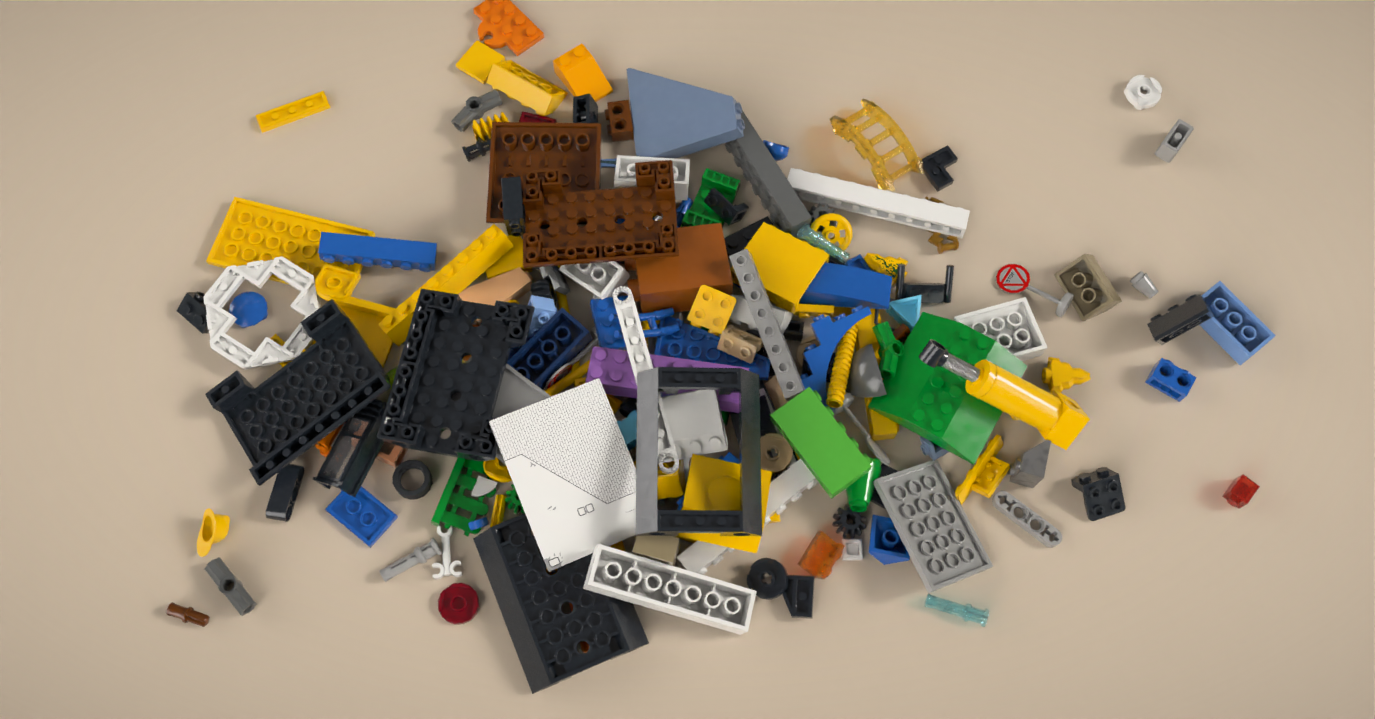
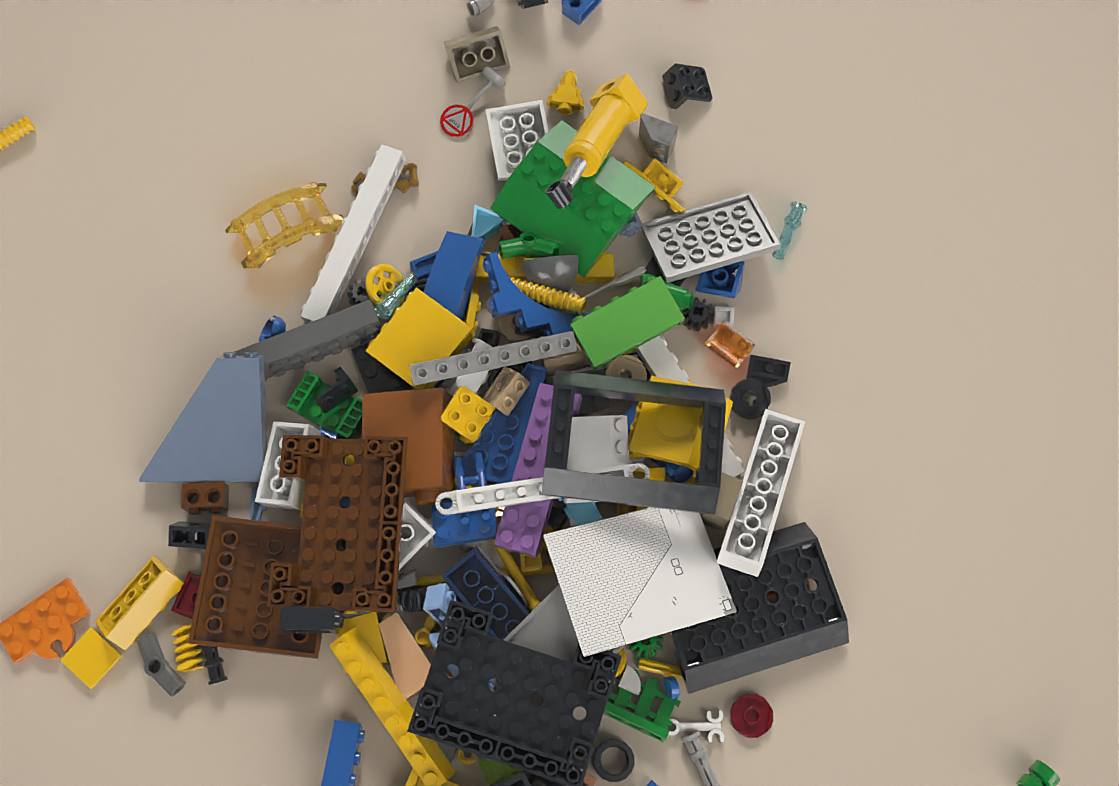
camera: 80 degrees left, 5 degrees up
(581, 73) = (135, 535): light orange slope -> none
(885, 265) = (429, 237): yellow rock -> none
(929, 291) = (462, 205): black plate -> none
(935, 165) = (320, 172): black plate -> none
(1024, 522) = (706, 154): light grey beam -> none

